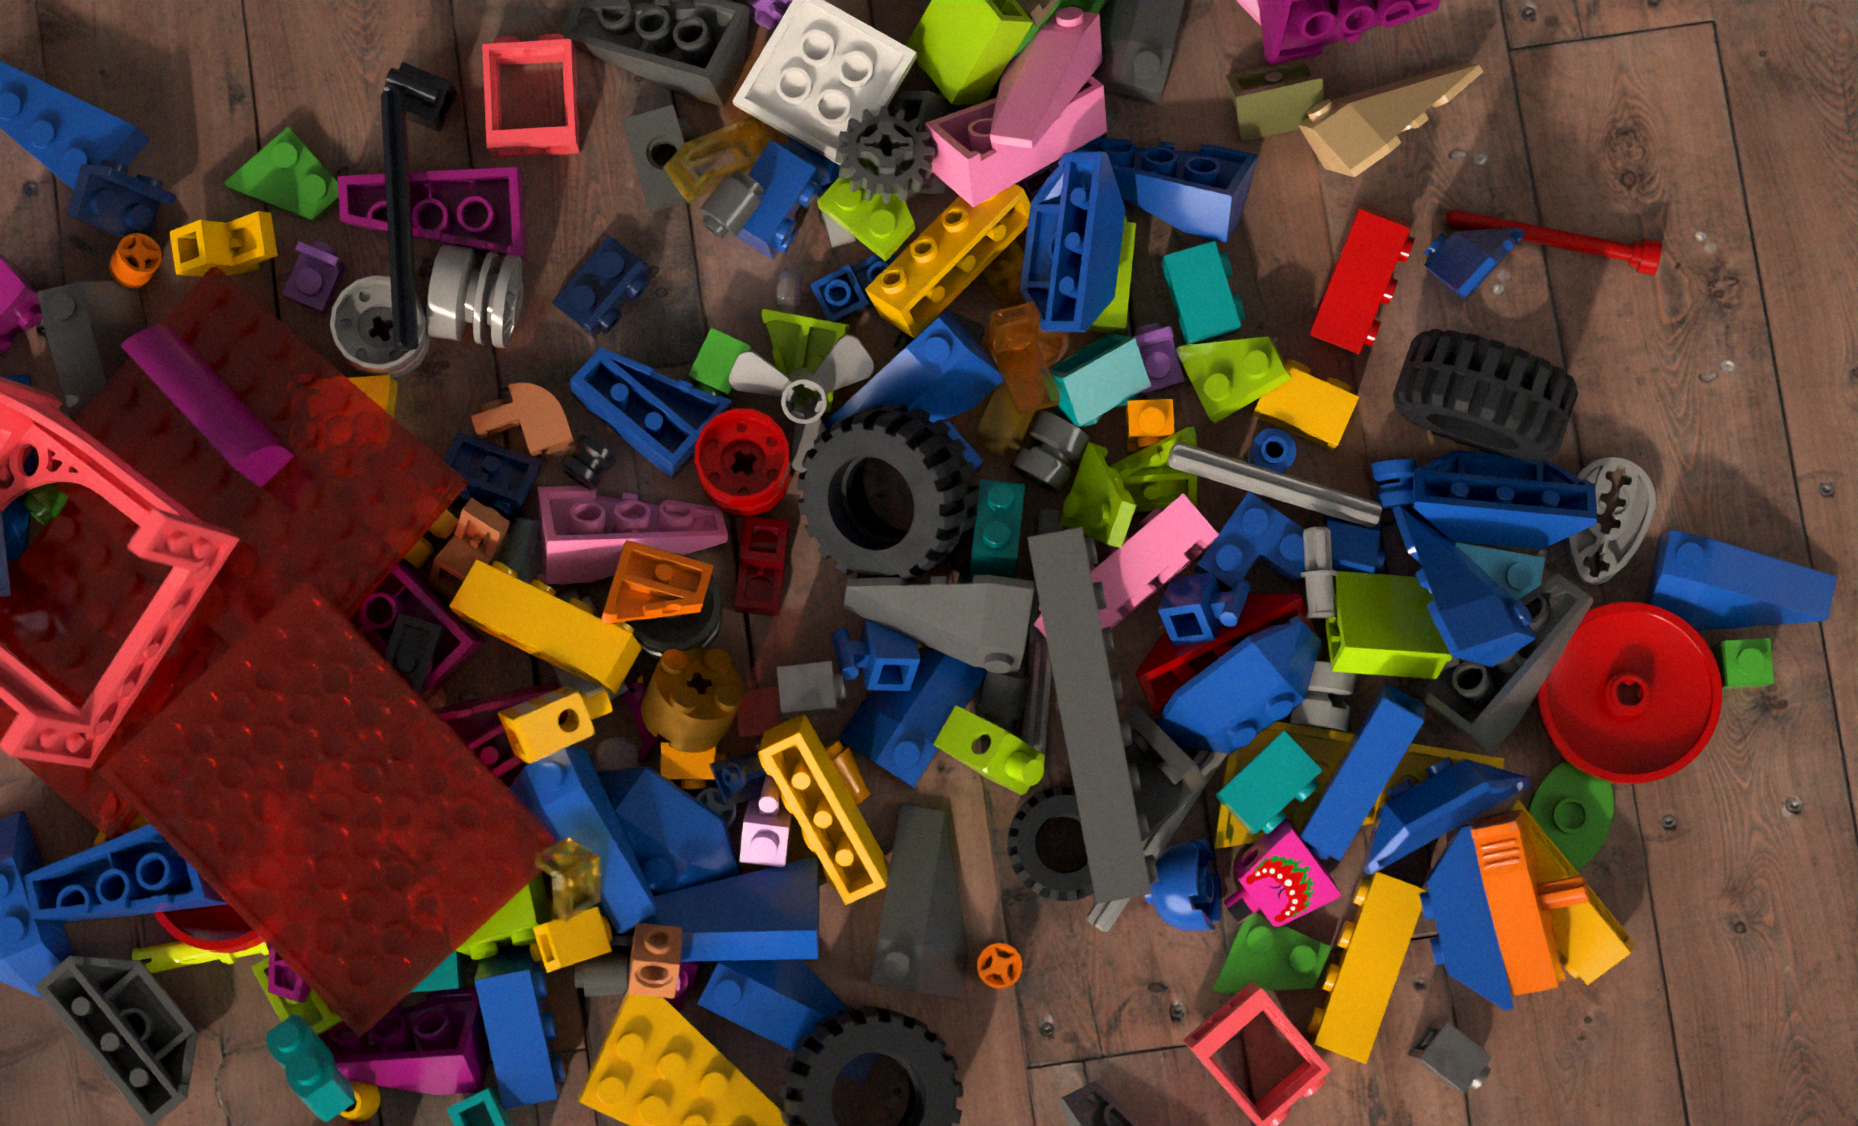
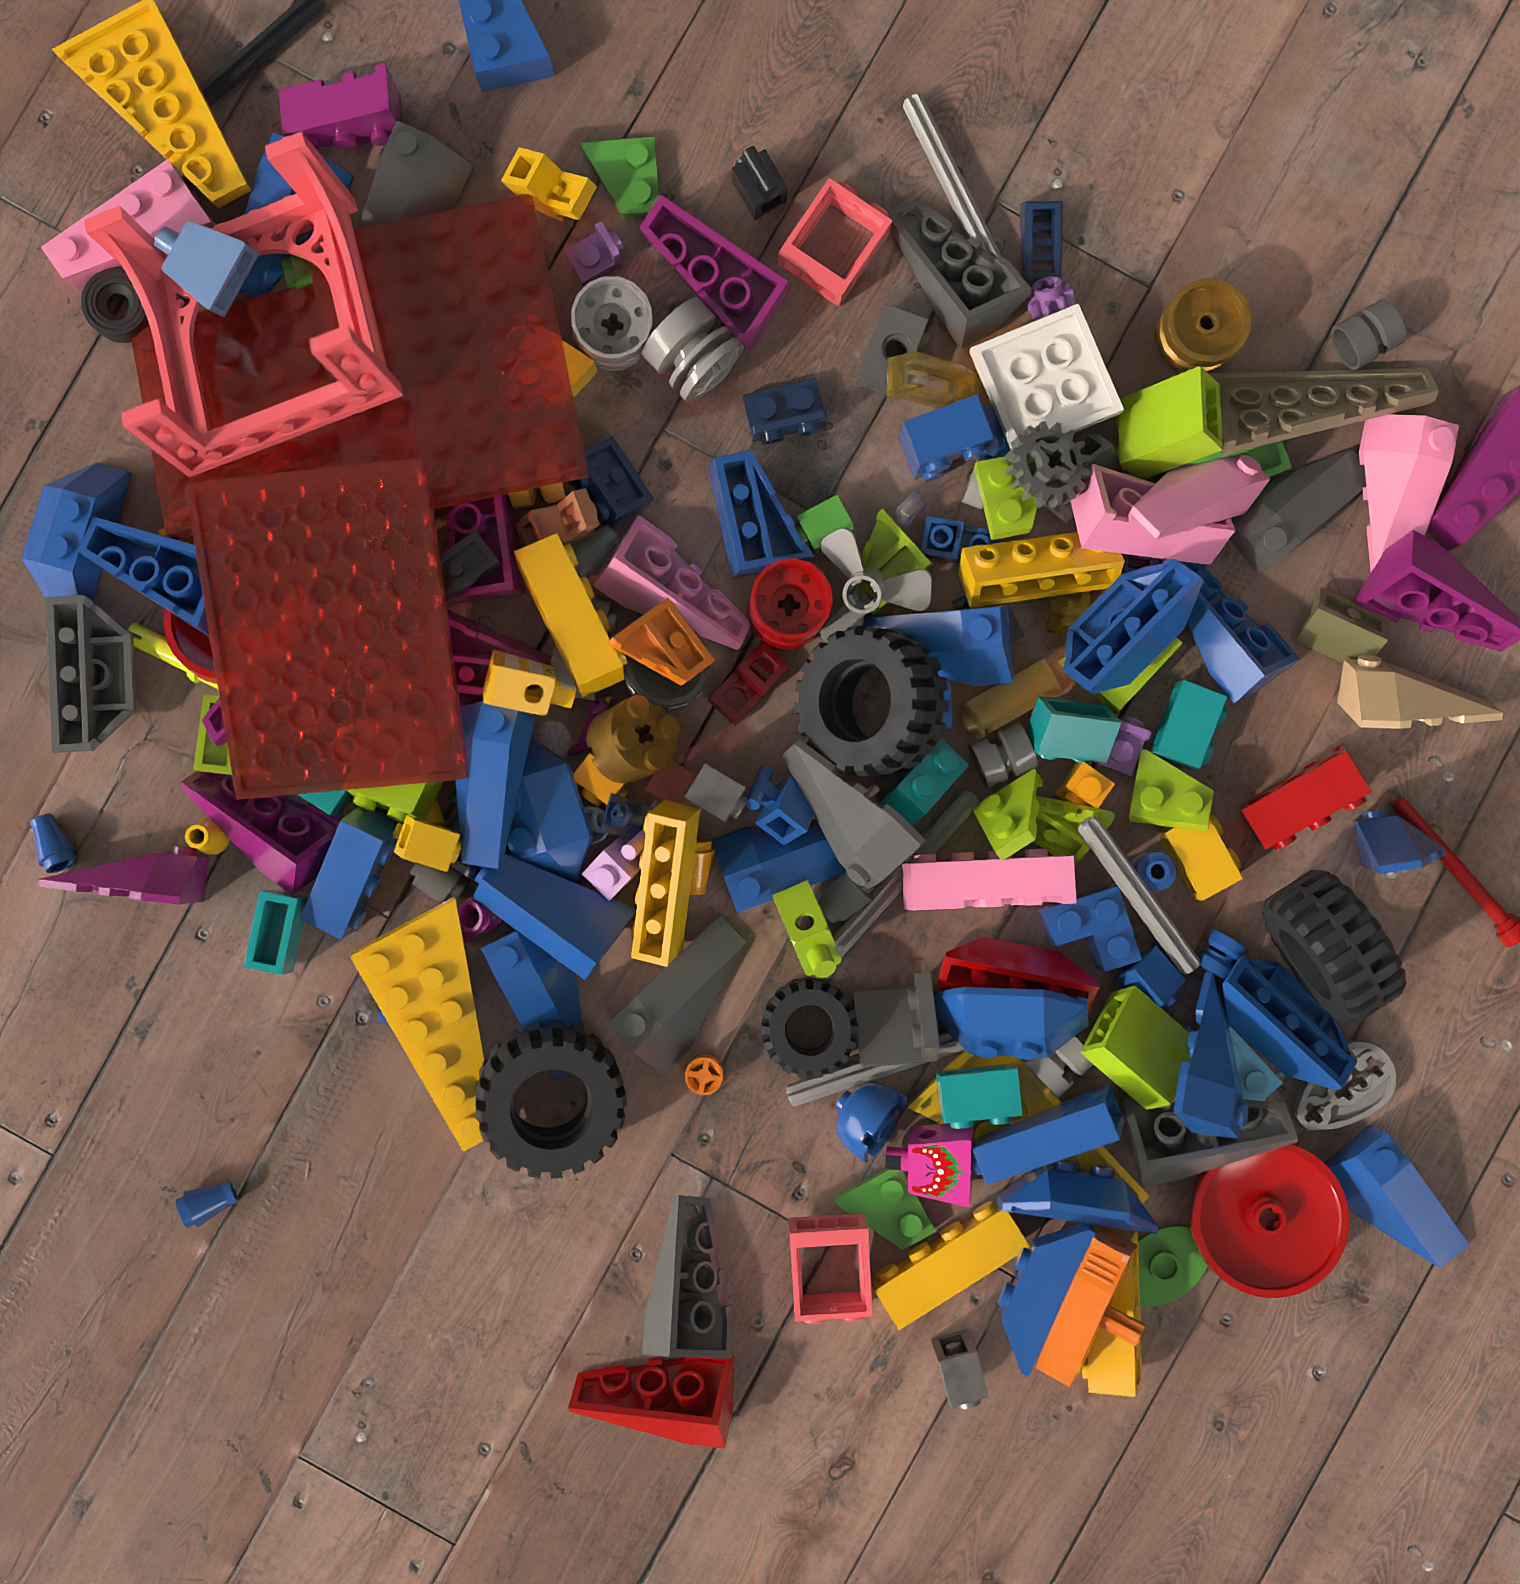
camera: 25 degrees right, 5 degrees up
(115, 200) = (497, 99): dark blue bracket -> none
(143, 252) = (490, 147): orange wheel -> none
(208, 402) = (451, 284): magenta brick -> none
(310, 1068) = (187, 794): teal brick -> none
(399, 220) = (679, 257): black axle -> none
(533, 409) = (675, 463): nougat brick -> none
(574, 877) = (457, 803): clear yellow bracket -> none
(587, 462) = (683, 523): black wheel -> none
(655, 960) = (471, 900): nougat brick -> none
(731, 205) = (915, 419): dark grey brick -> none
(1019, 360) = (1031, 678): clear orange bracket -> none
(1090, 715) = (893, 960): dark grey brick -> none
(1197, 607) = (1022, 938): blue brick -> none
(1318, 573) = (1123, 979): light grey axle -> none
(1744, 663) = (1365, 1258): bright green brick -> none

